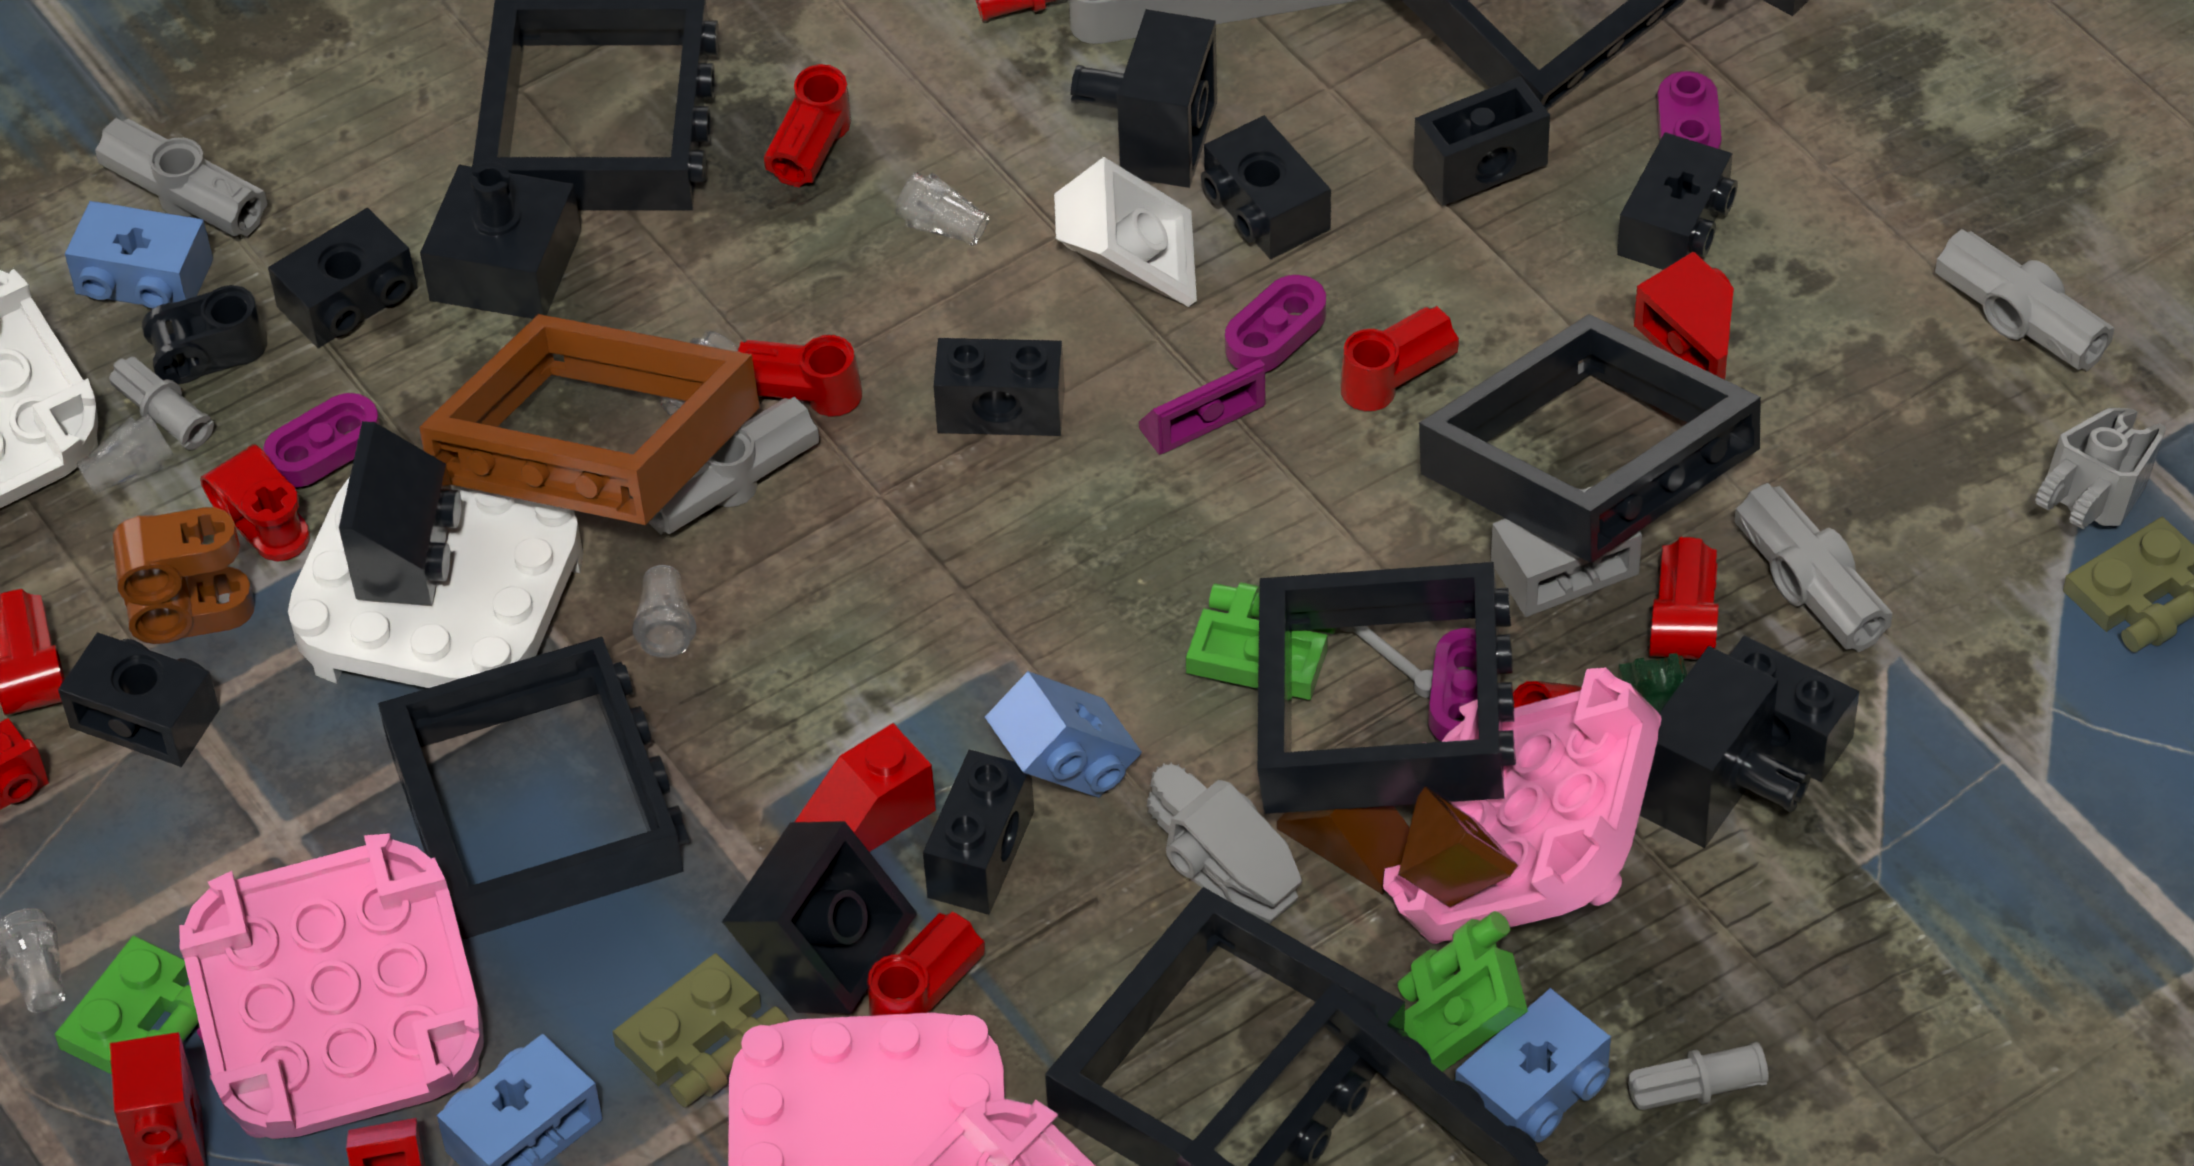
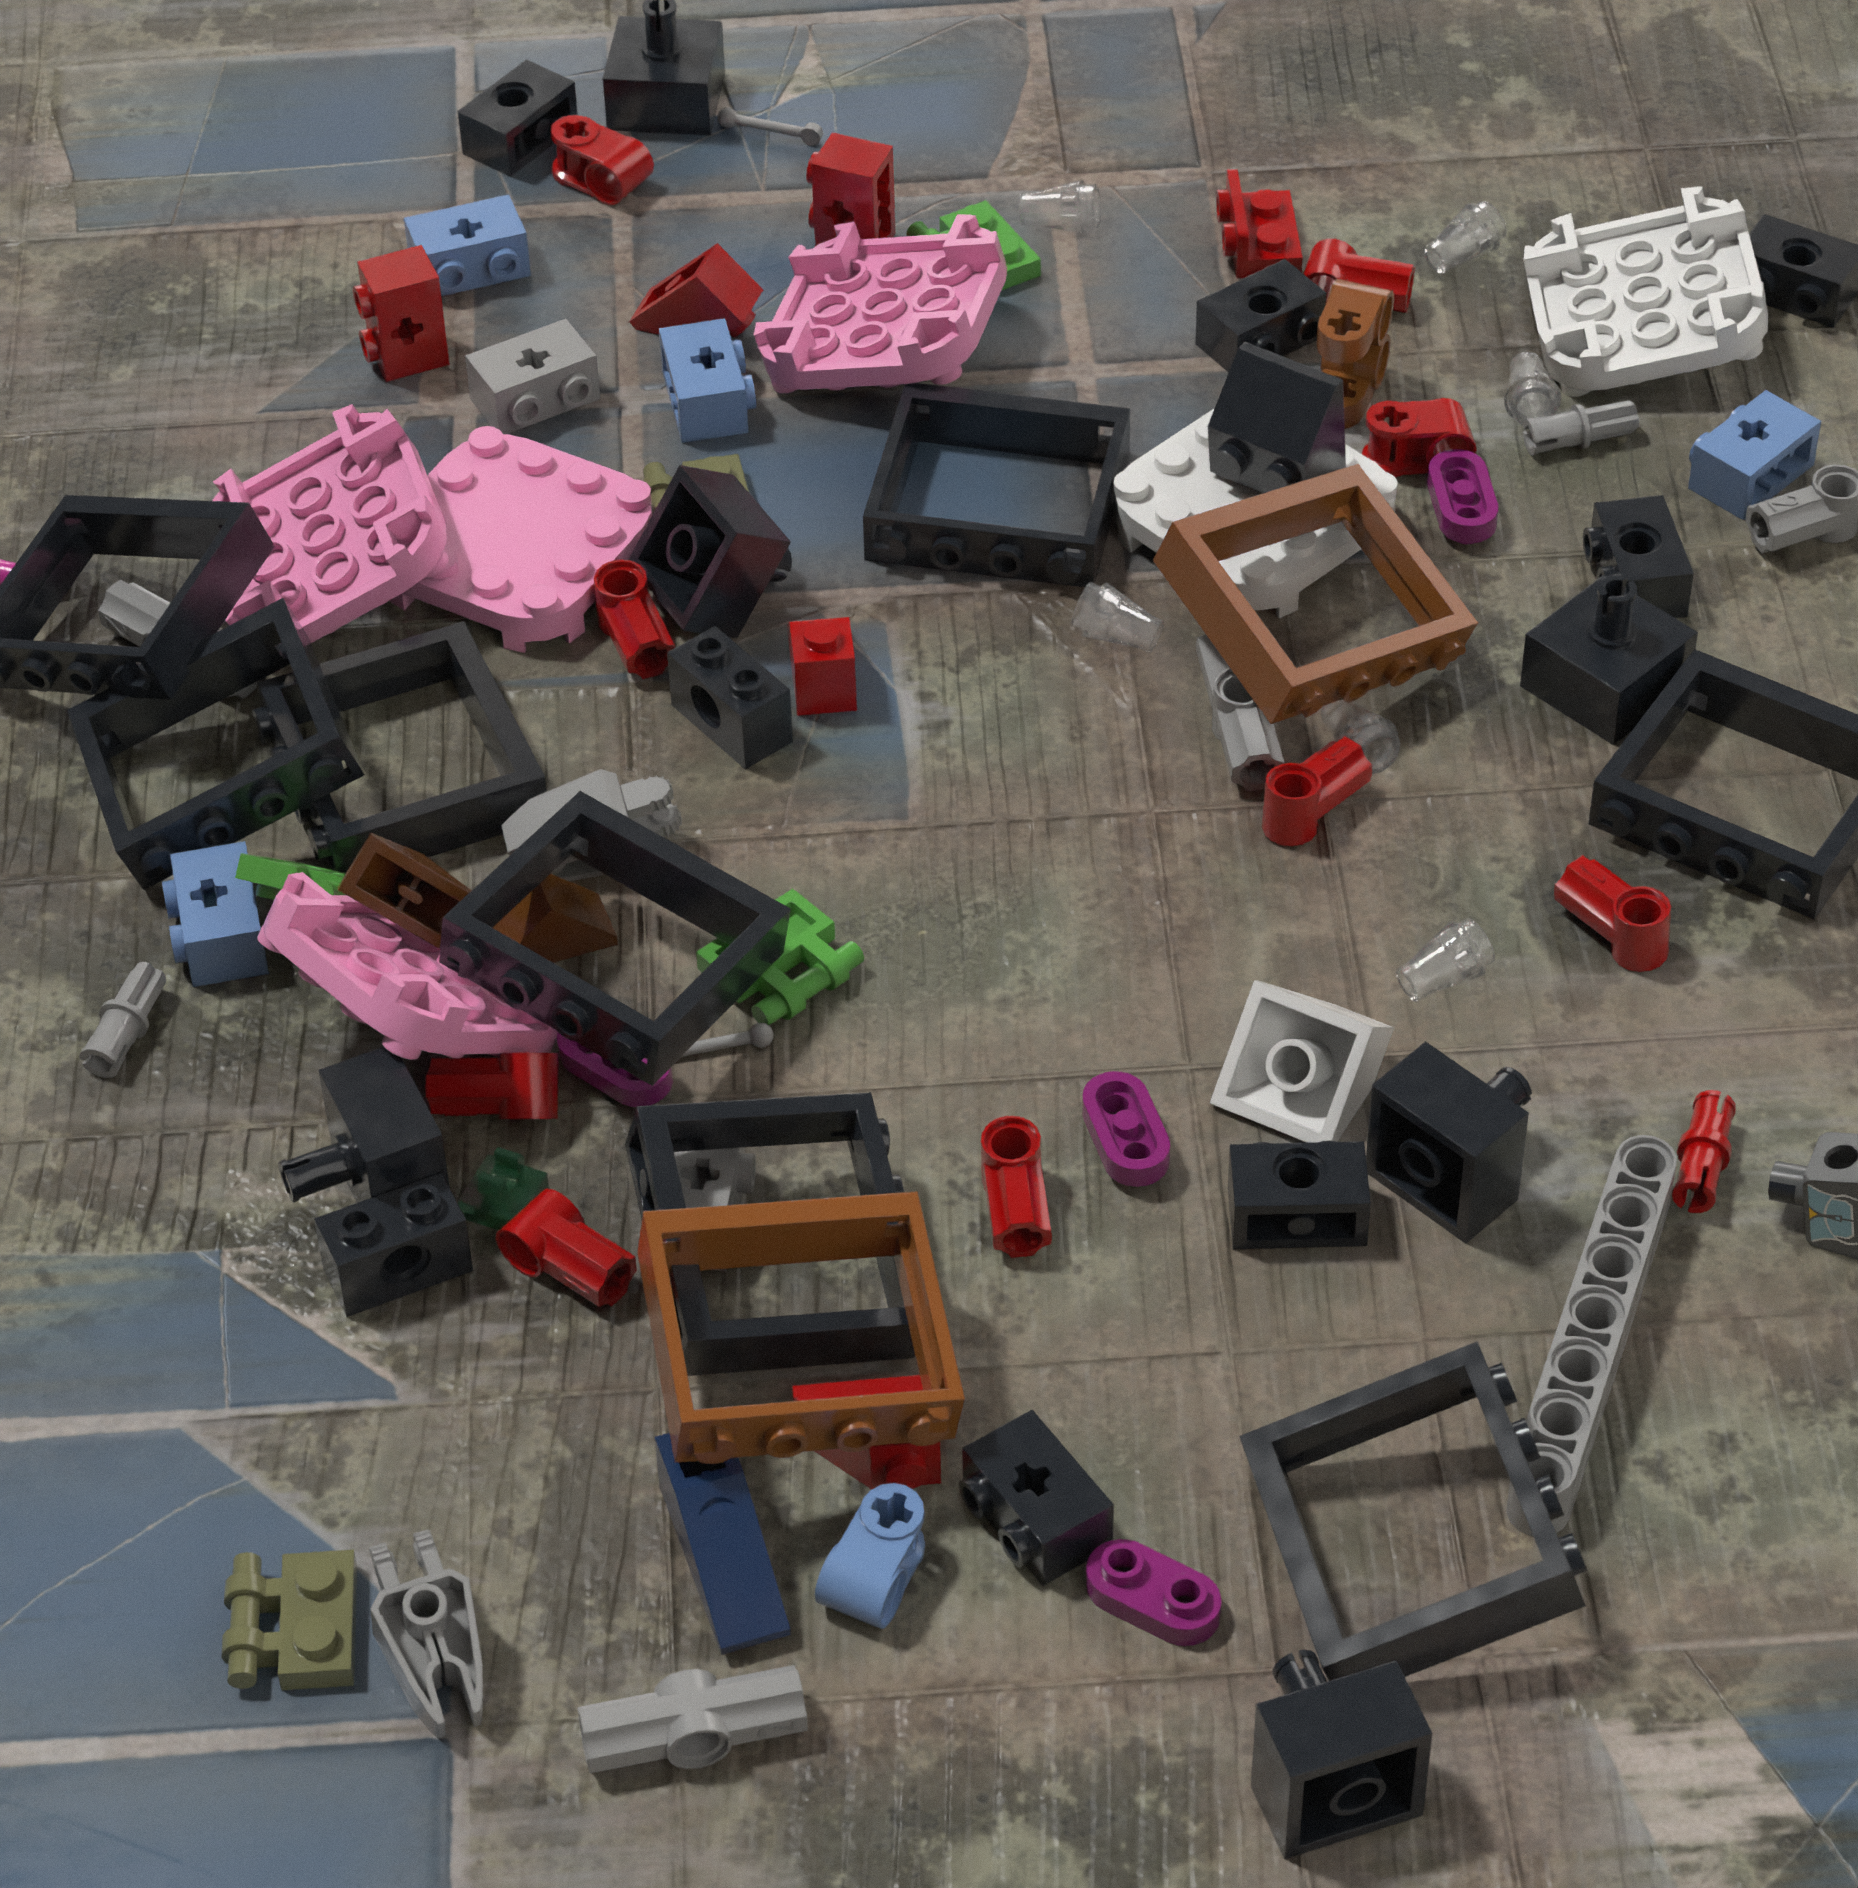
camera: 120 degrees right, 5 degrees down
(209, 331) = (1633, 461): black piece -> none
(999, 386) = (1188, 899): black brick -> none
(1063, 735) = (773, 787): medium blue brick -> none
(1205, 408) = (1073, 1035): magenta slope -> none
(1481, 140) = (1221, 1365): black brick -> none
(1565, 332) = (789, 1235): none -> dark orange window
(1808, 263) = (875, 1556): none -> medium blue piece
(1813, 567) = (526, 1361): light grey piece -> none
(1863, 360) = (723, 1548): none -> dark blue slope

